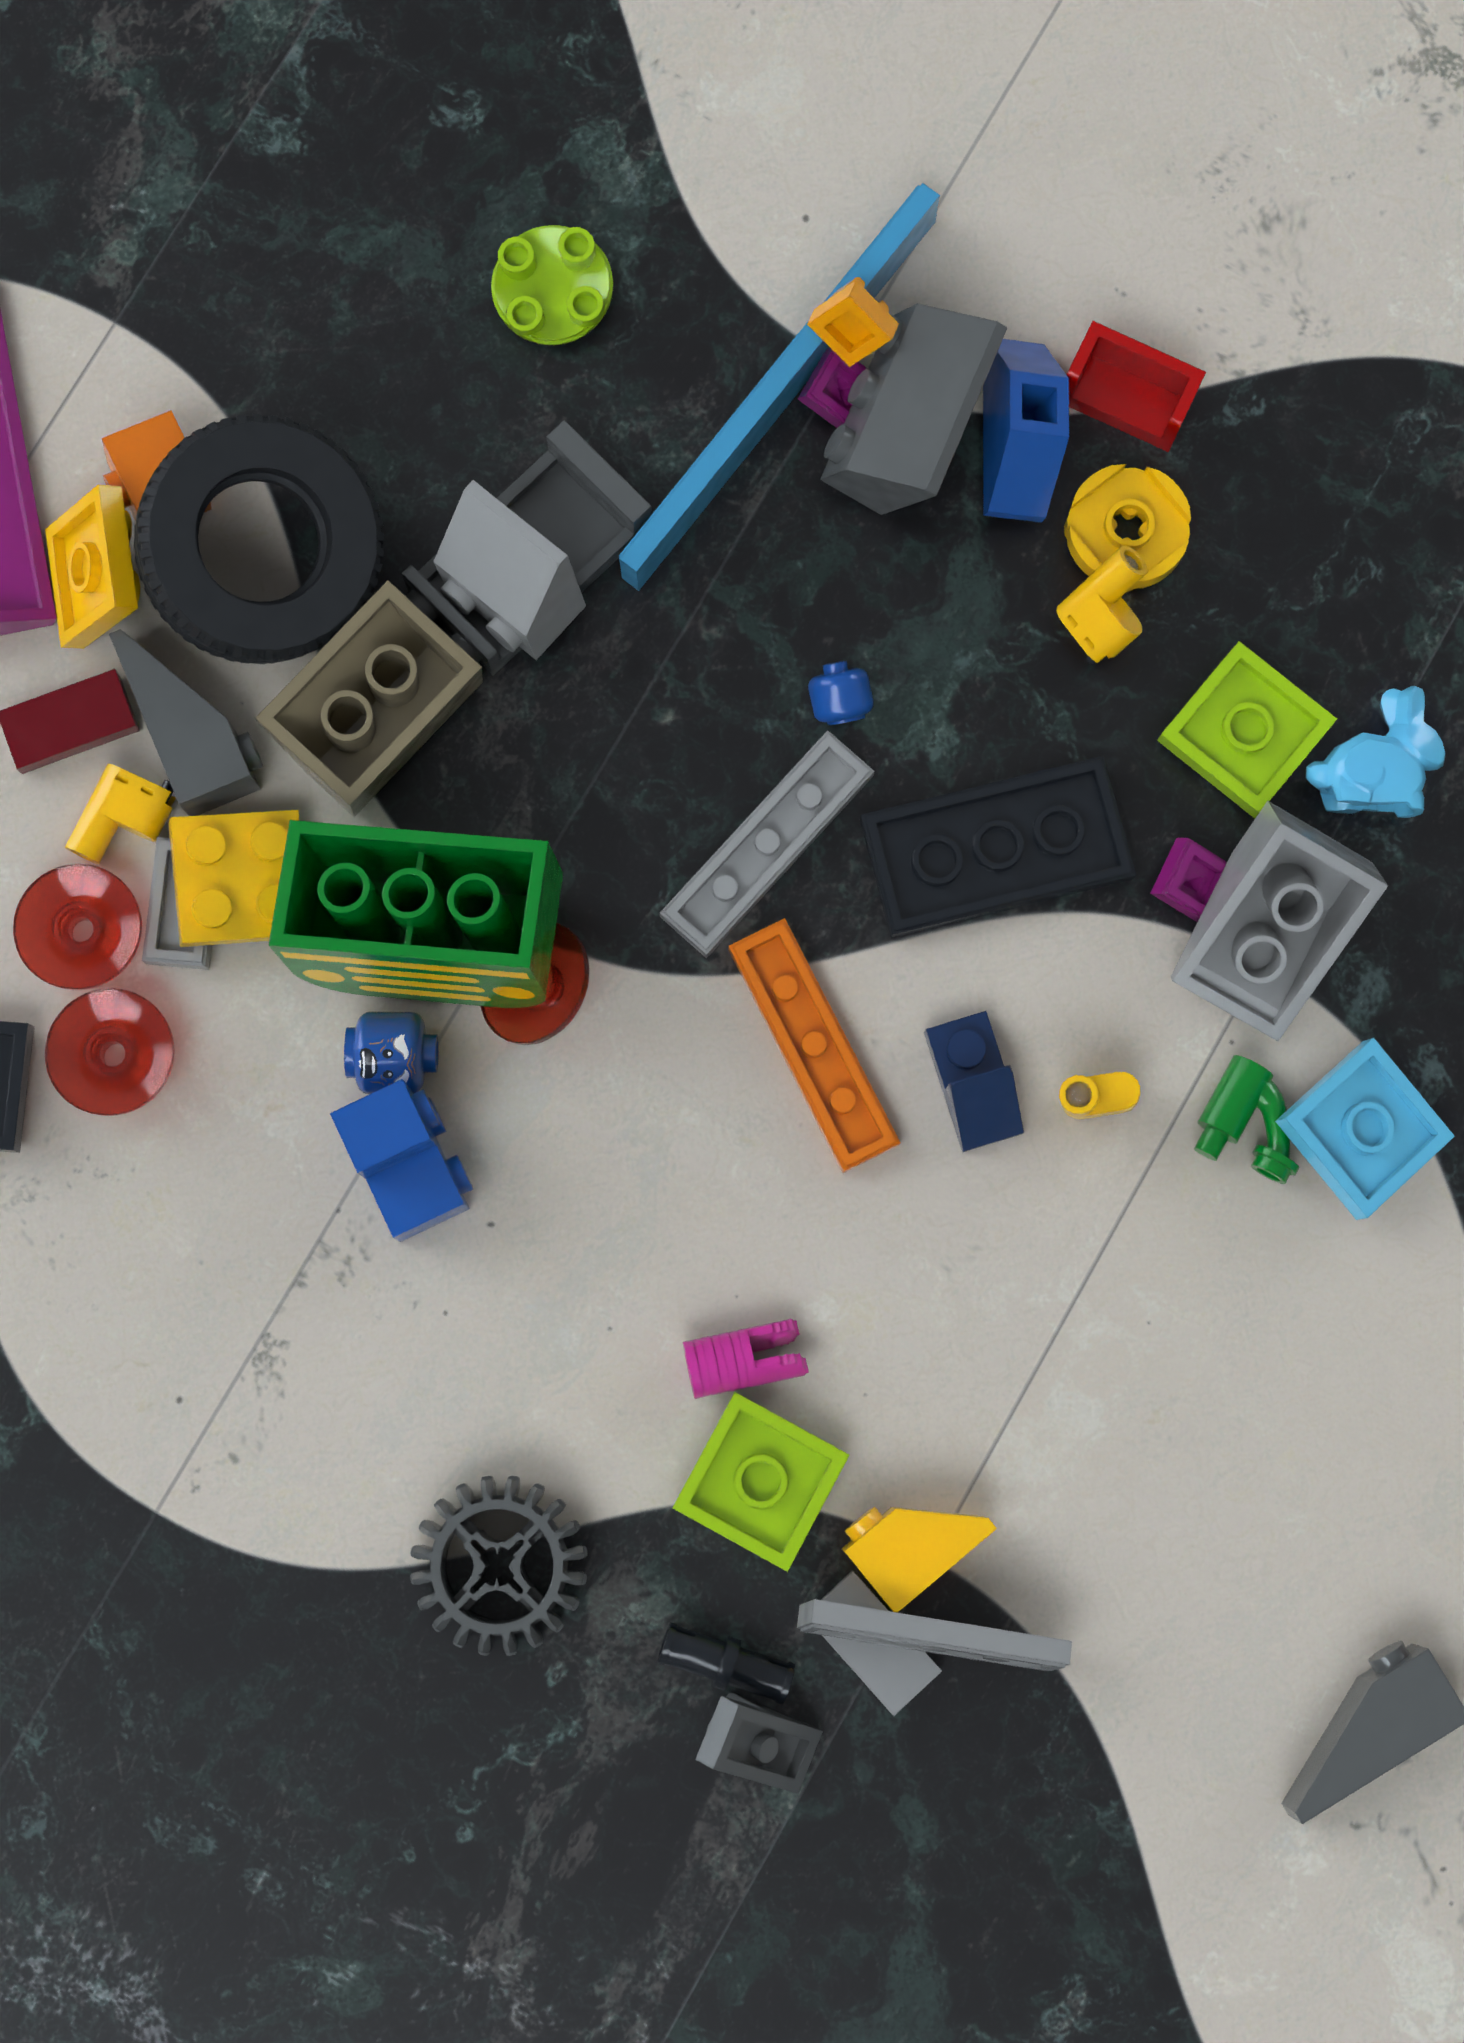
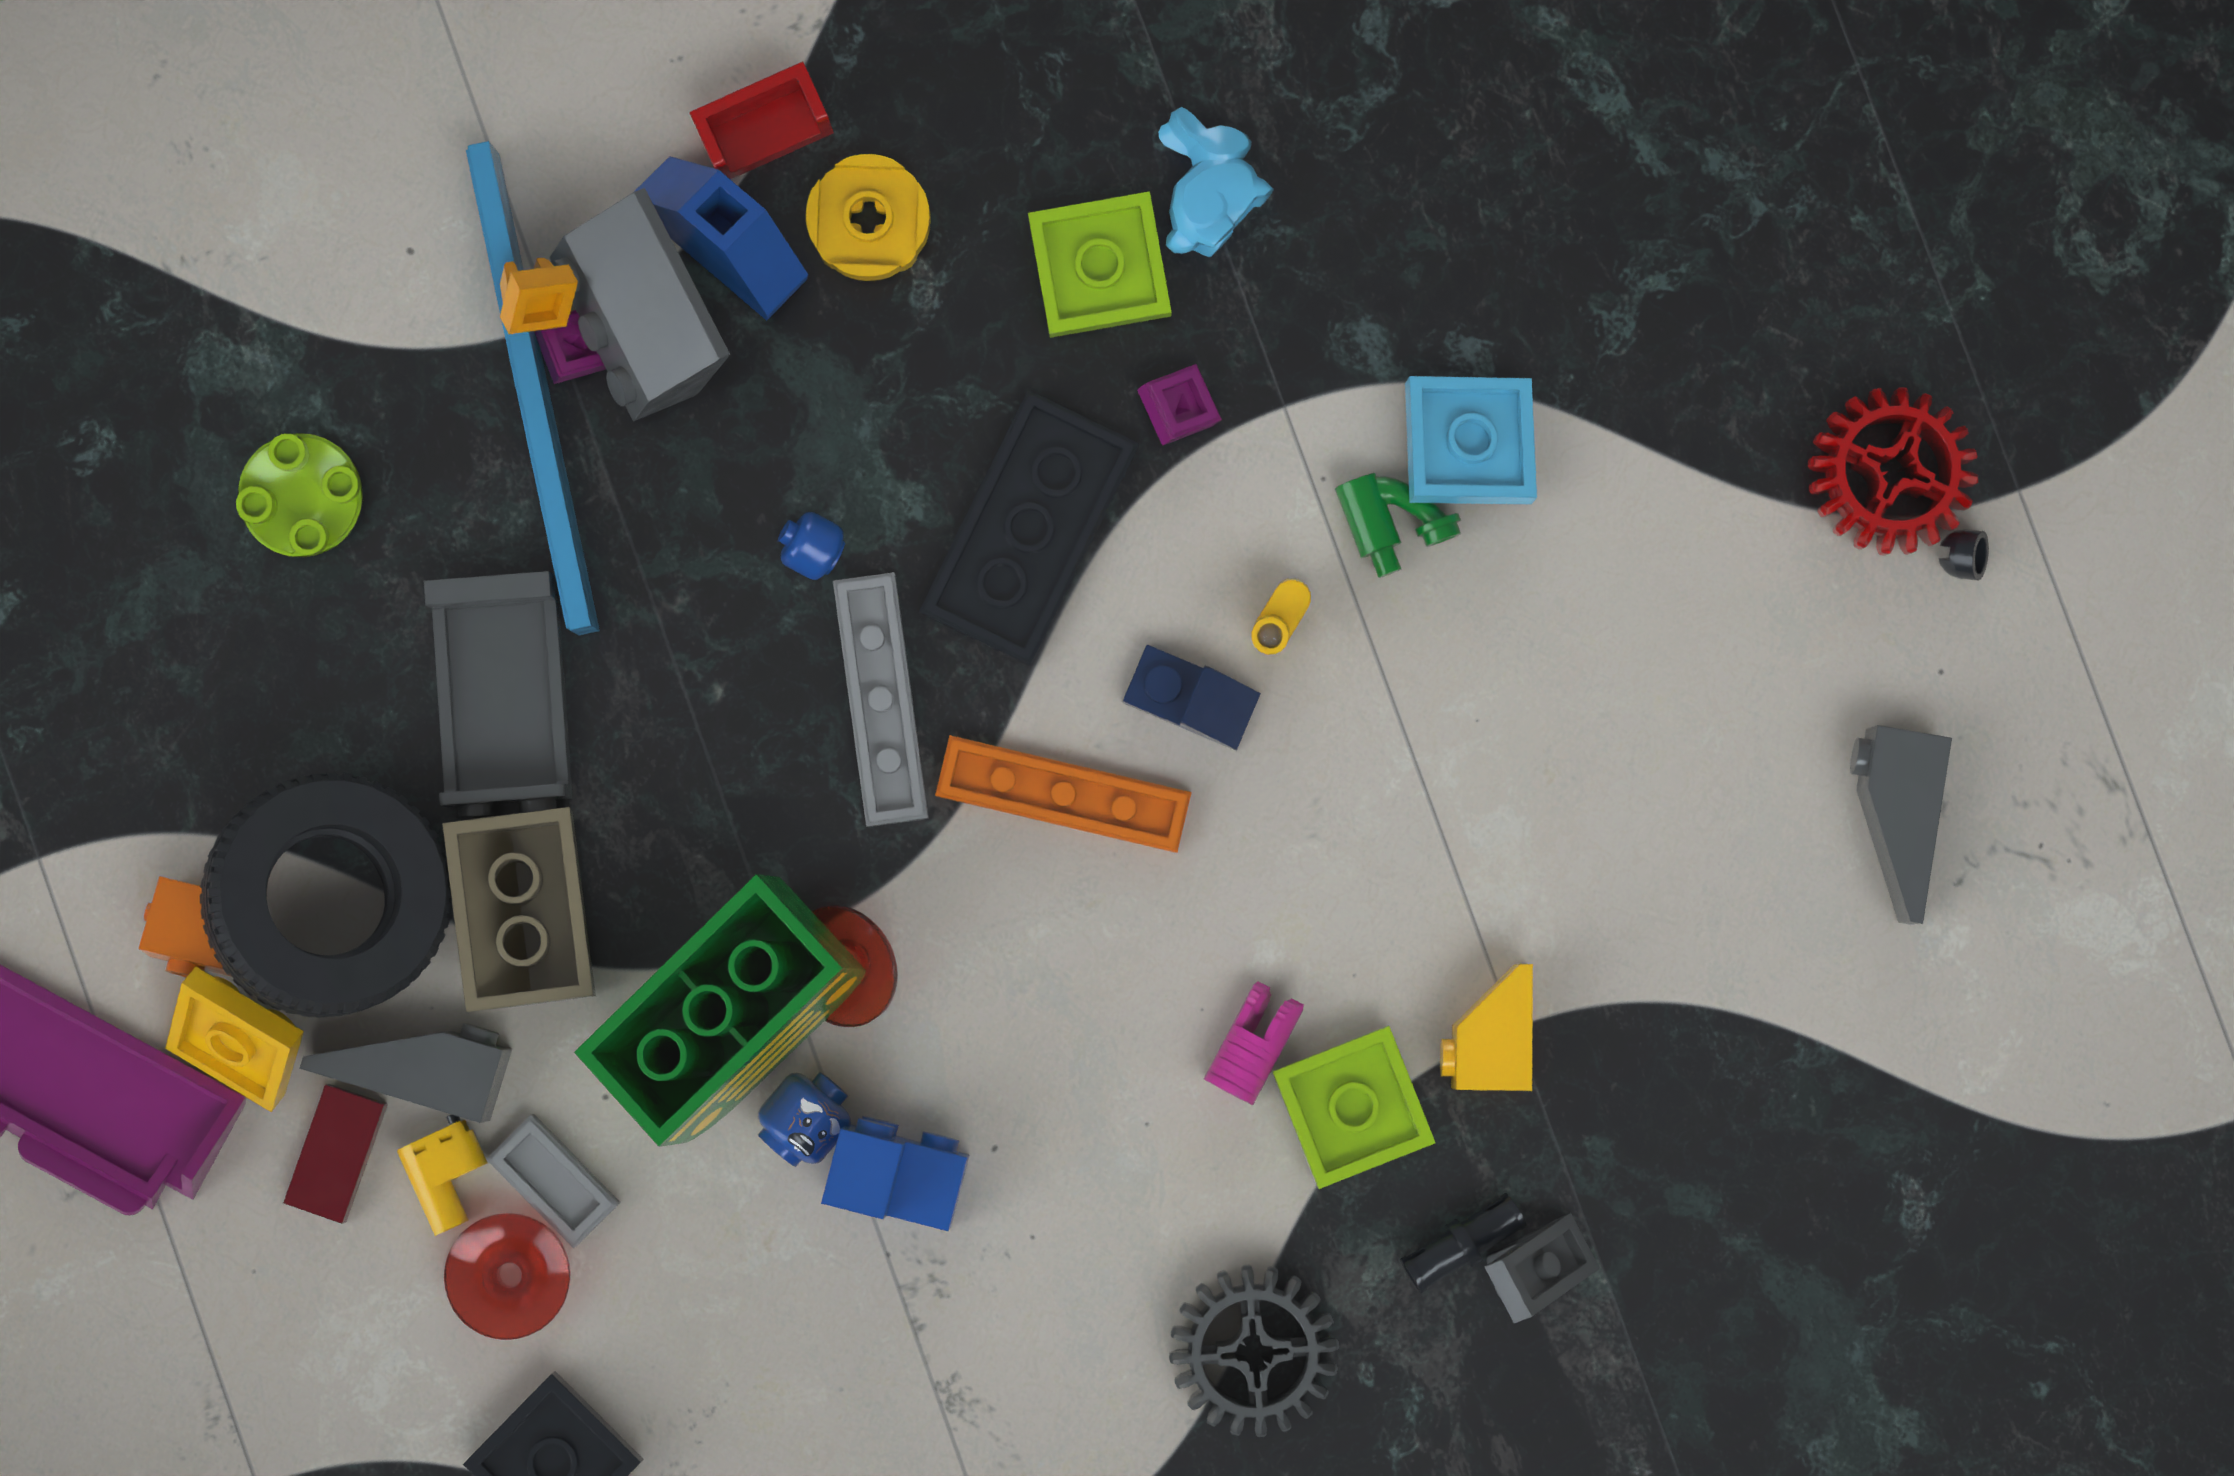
camera: 45 degrees left, 5 degrees up
(84, 1033) = (593, 1336): clear red dish -> none
(227, 875) = (565, 1126): yellow plate -> none
(507, 574) = (511, 728): light grey slope -> none
(888, 1671) = (1538, 1123): light grey tile -> none
(933, 1635) = (1570, 1075): light grey tile -> none
(1097, 611) = (917, 299): yellow piece -> none
(1277, 921) = (1262, 369): light grey slope -> none

